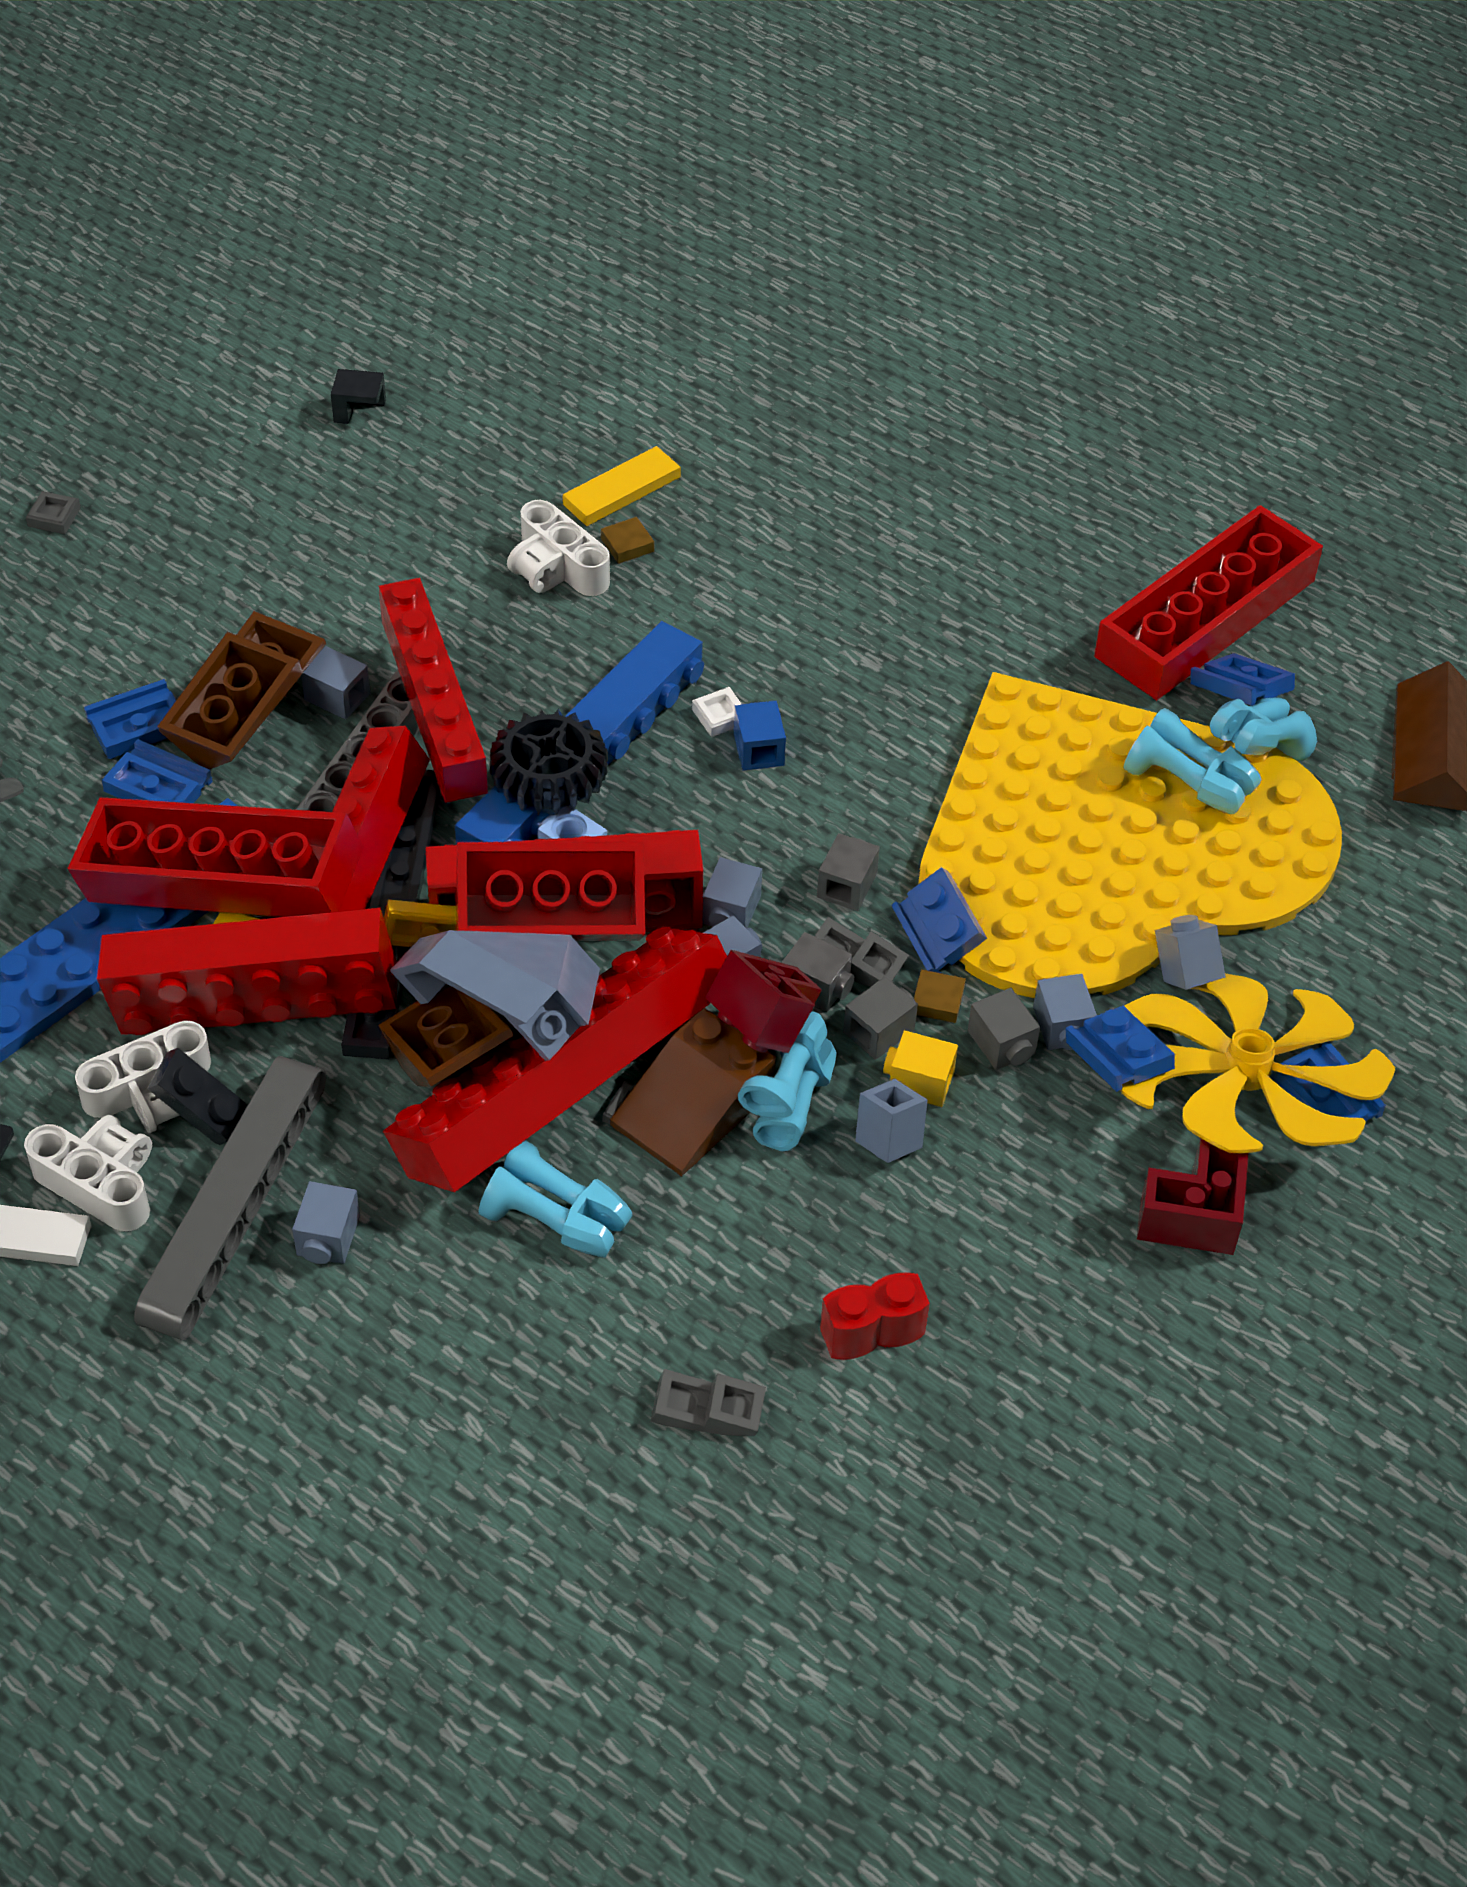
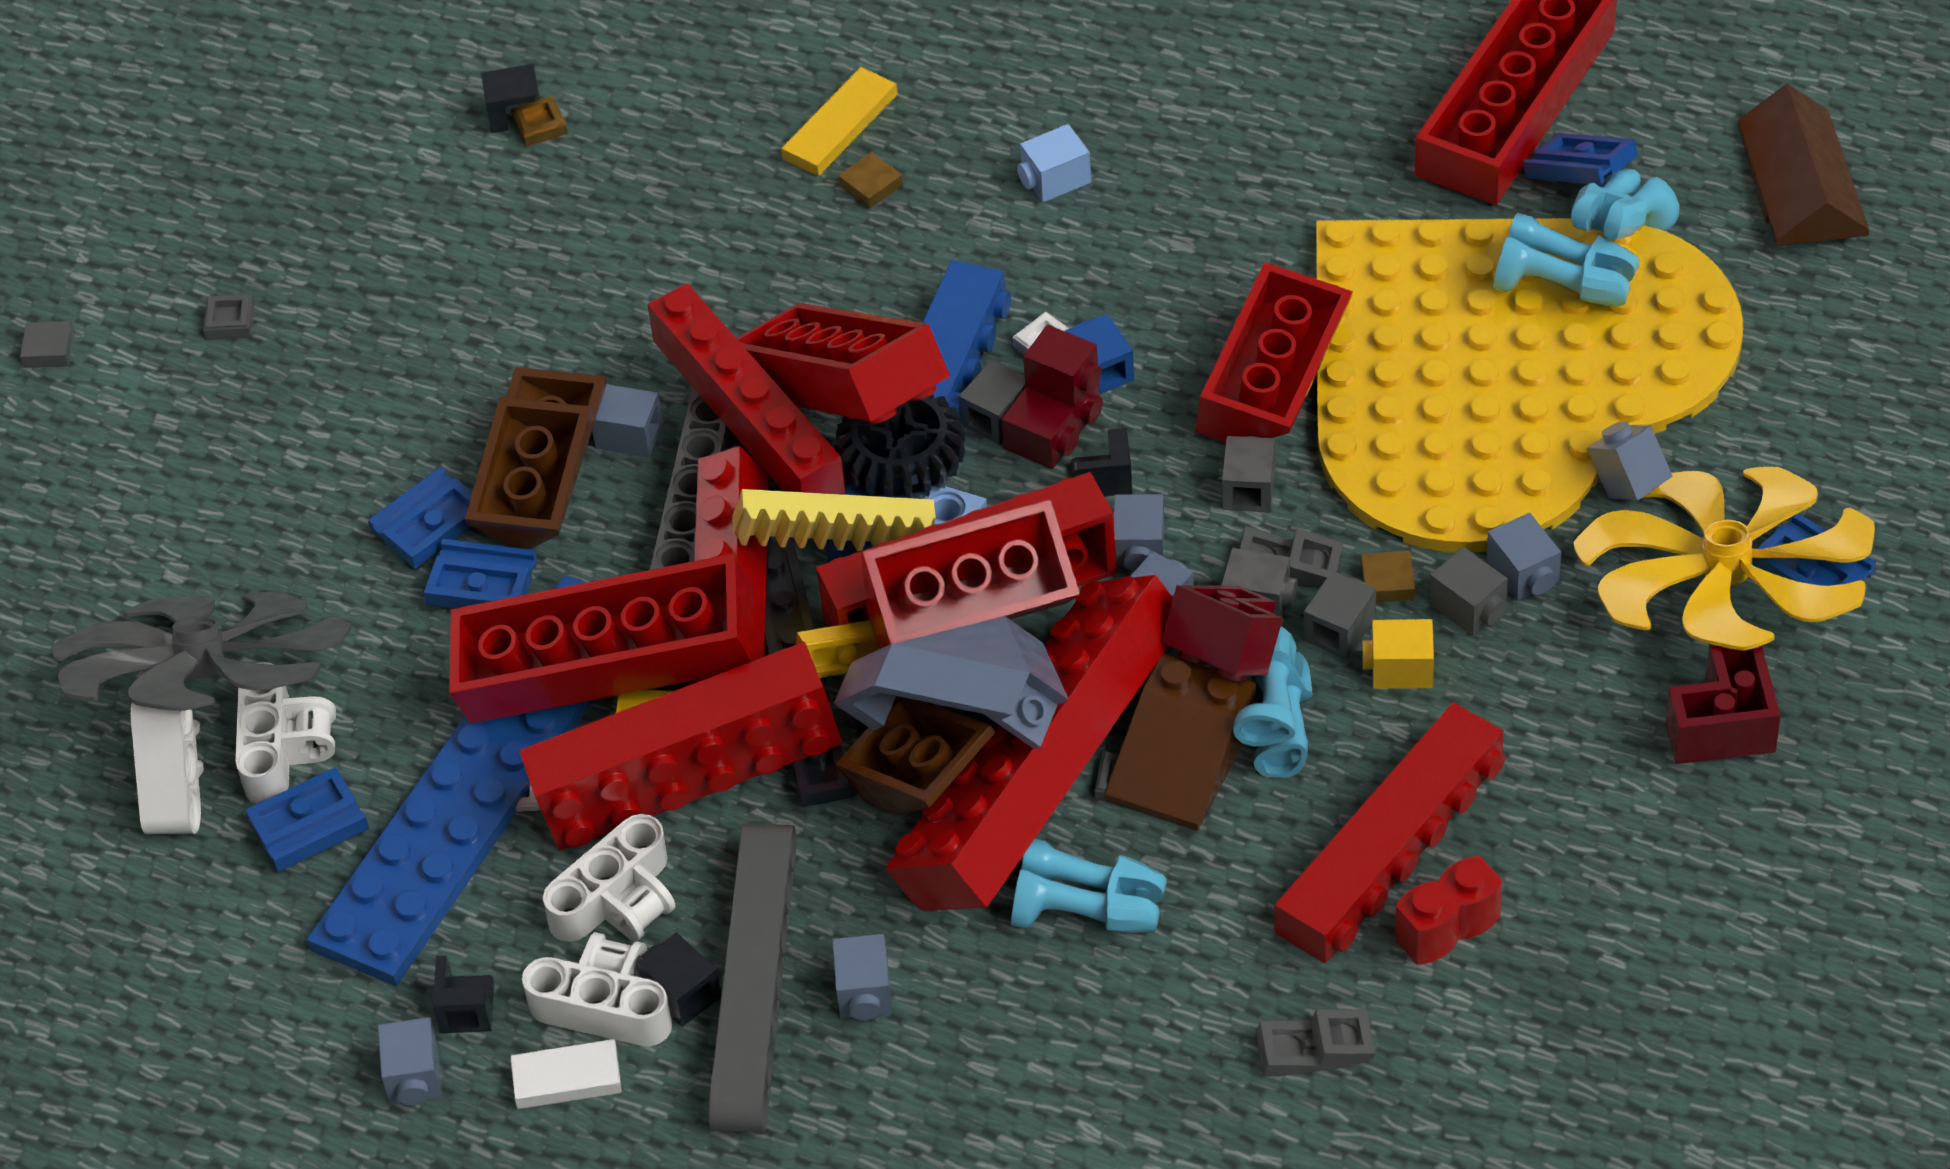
camera: 10 degrees left, 0 degrees up
(166, 1177) = (684, 974): none -> black brick
(197, 1096) = (678, 888): black plate -> none
(375, 422) = (539, 121): none -> pearl gold tile
(455, 807) = (828, 517): none -> light yellow gear
(521, 677) = (847, 360): none -> red brick
(558, 552) = (805, 211): white piece -> none
(653, 750) = (989, 399): none -> dark grey brick
(706, 761) = (1057, 398): none -> dark red brick
(727, 838) = (1112, 470): none -> black panel
(785, 565) = (1054, 163): none -> light blue brick
(848, 1229) = (1389, 833): none -> red brick
(891, 1120) = (1392, 714): sand blue brick -> none
(903, 773) = (1271, 355): none -> red slope
(939, 921) = (1362, 499): blue plate -> none
(1120, 1048) = (1596, 577): blue plate -> none

